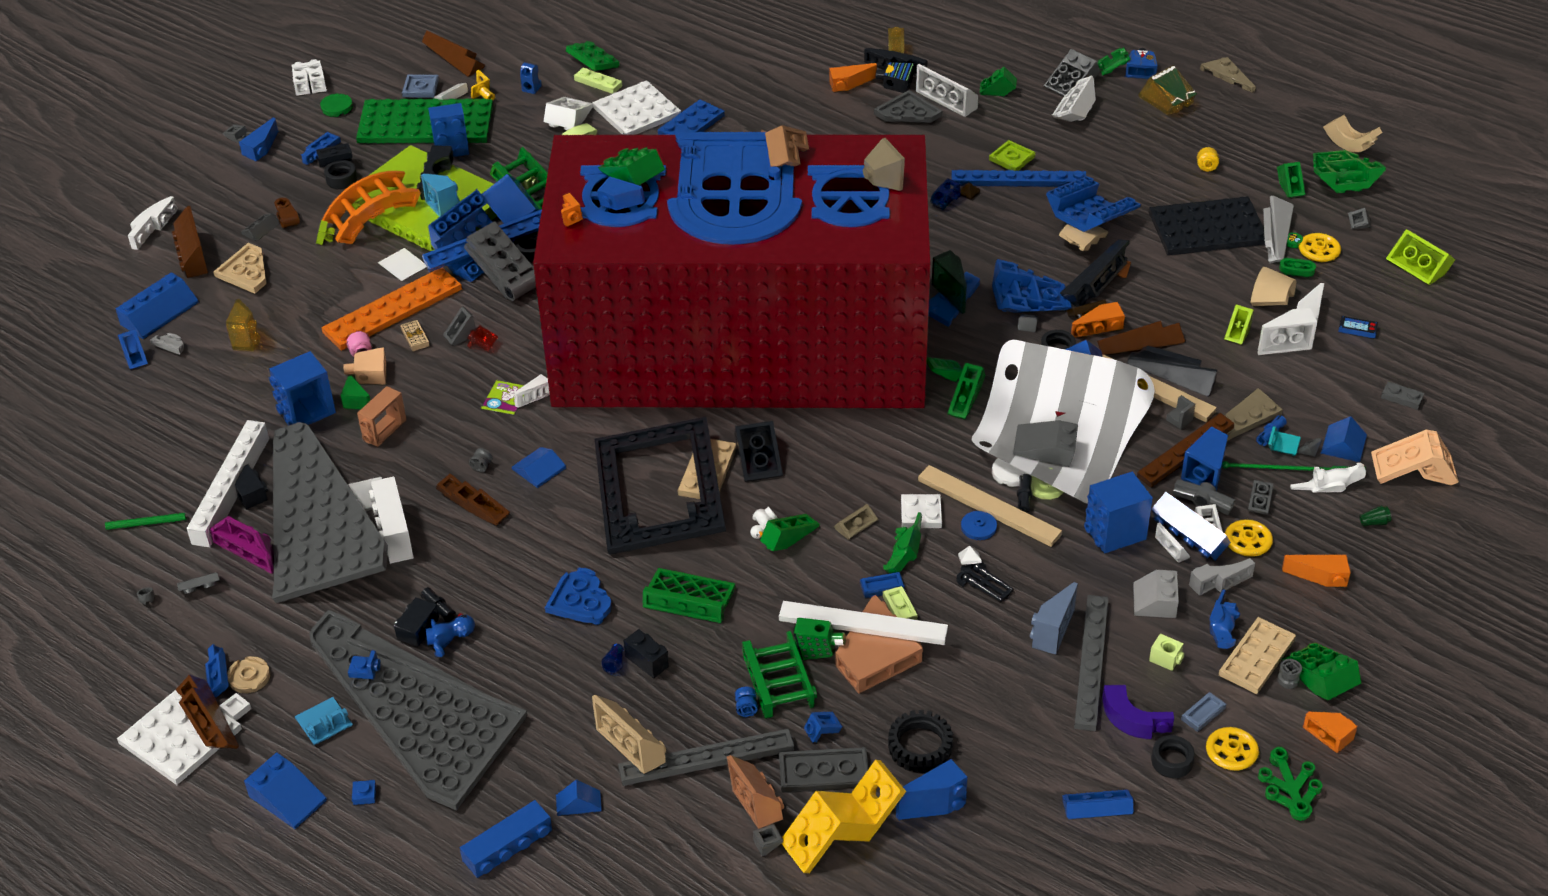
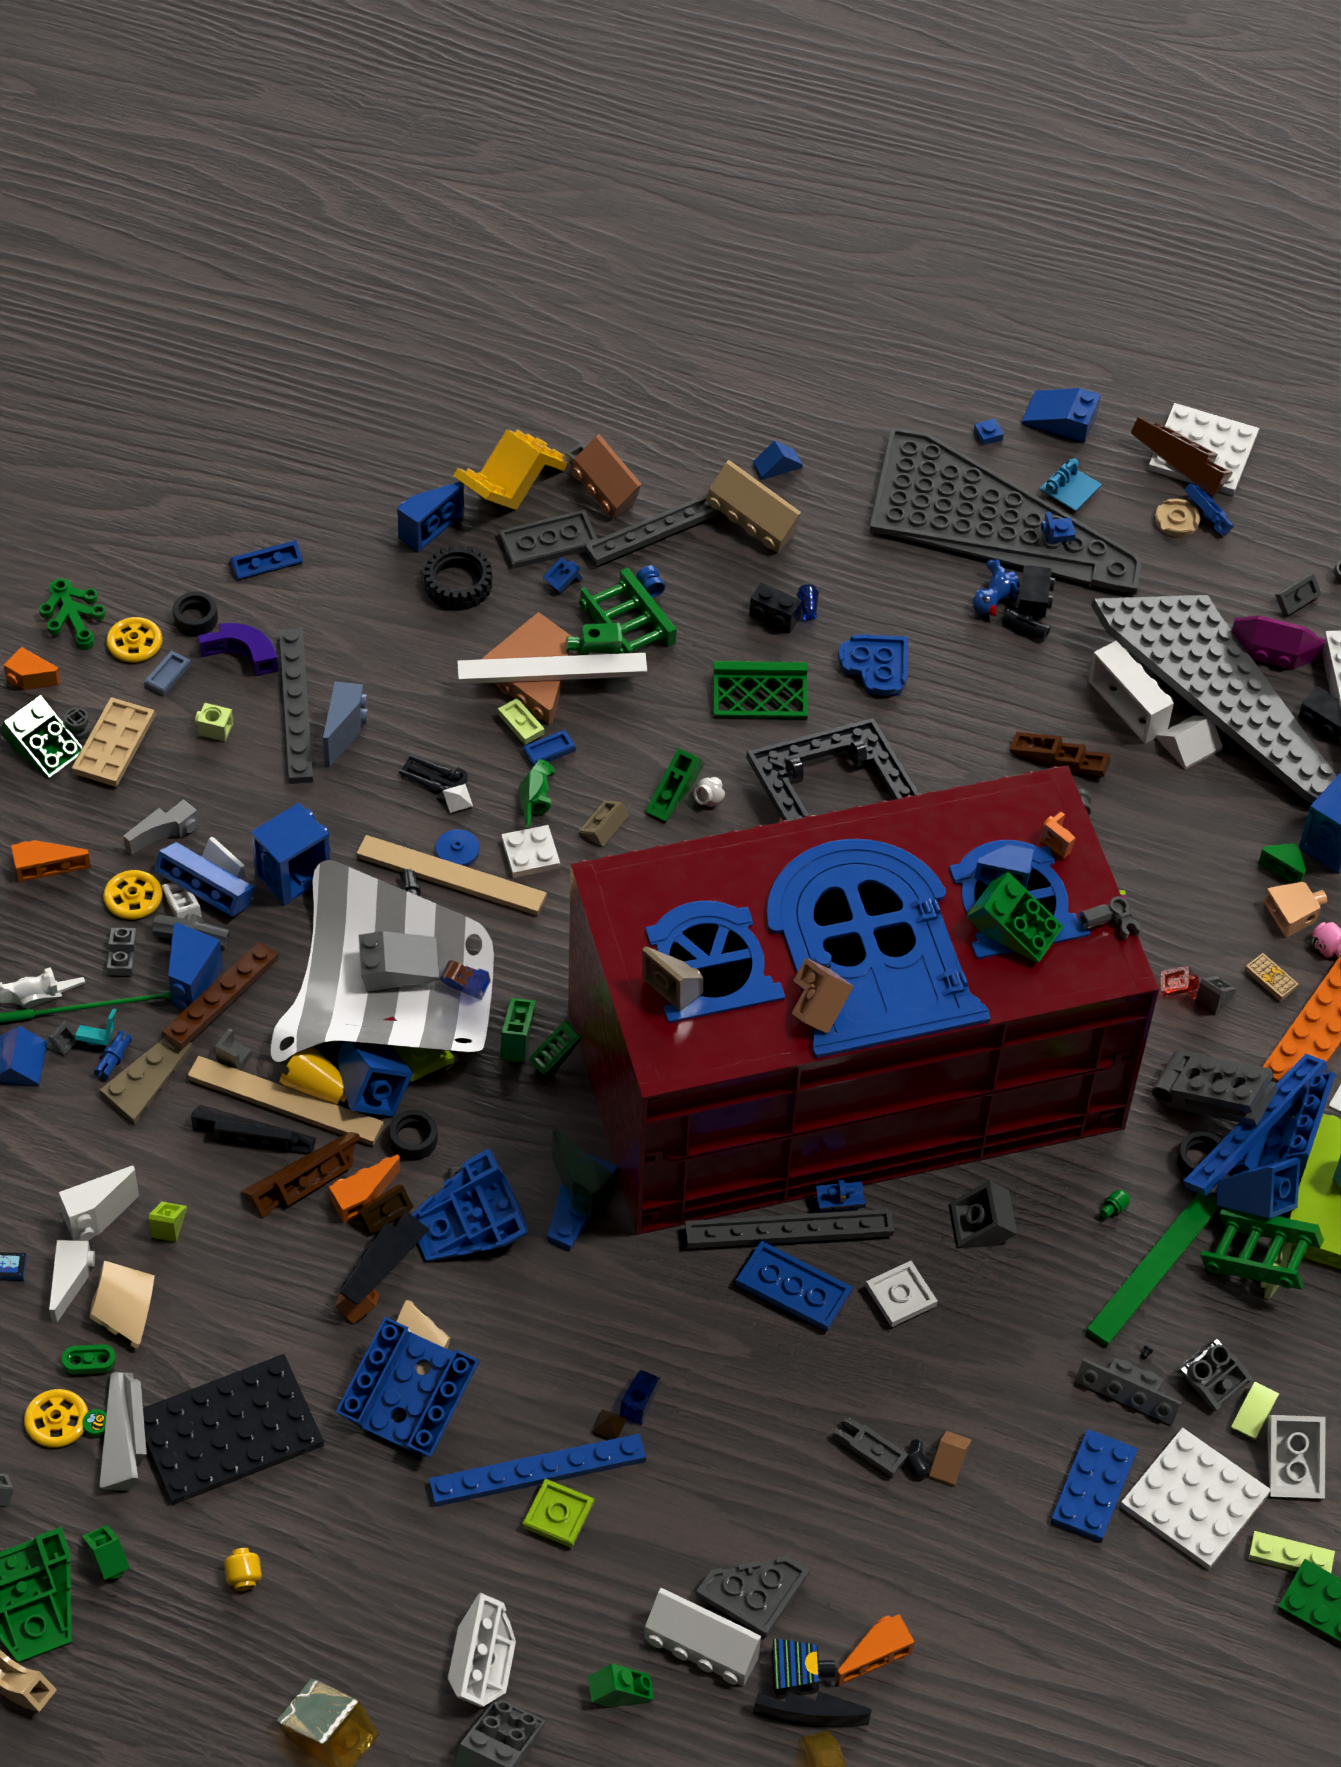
camera: 160 degrees right, 10 degrees up
(235, 707) = (1165, 478): white plate -> none
(386, 400) = (1227, 822): nougat window -> none
(506, 839) = (827, 410): blue brick -> none
(557, 169) = (1116, 911): none -> dark grey bar
(995, 426) = (466, 979): none -> clear blue leg
(1156, 594) = (234, 789): light grey slope -> none
(1223, 622) = (154, 766): blue animal -> none

